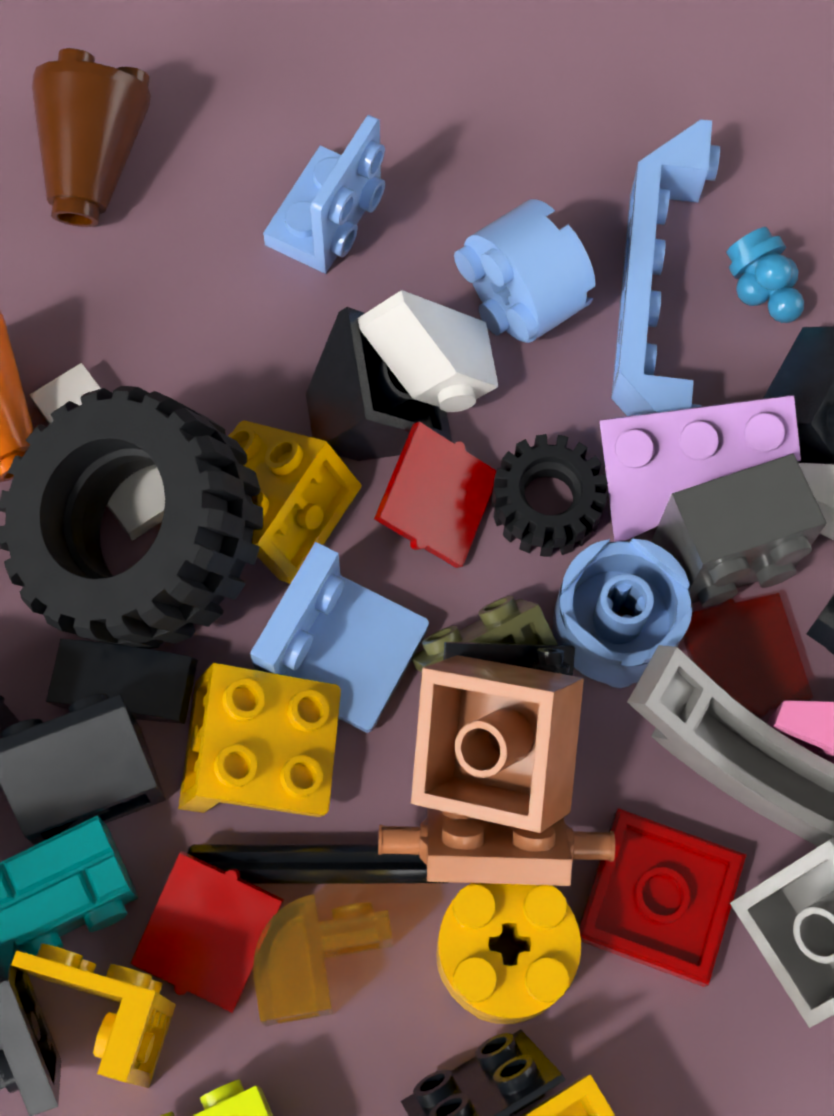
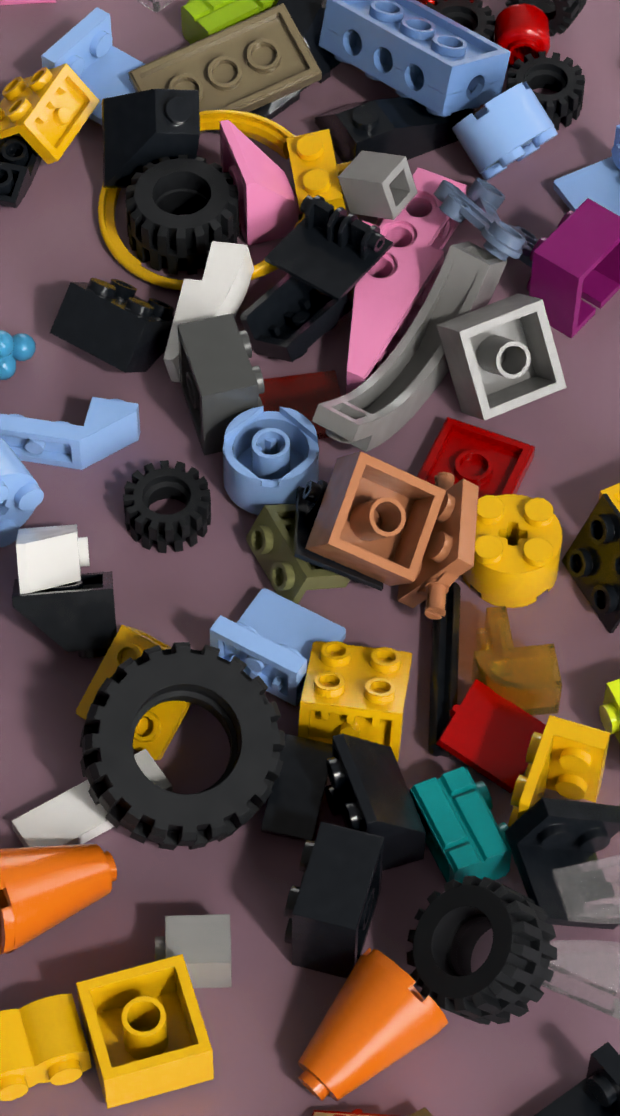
camera: 85 degrees left, 15 degrees down
(436, 495) = (161, 574): red piece -> none
(681, 448) = (156, 402): lavender wing -> none

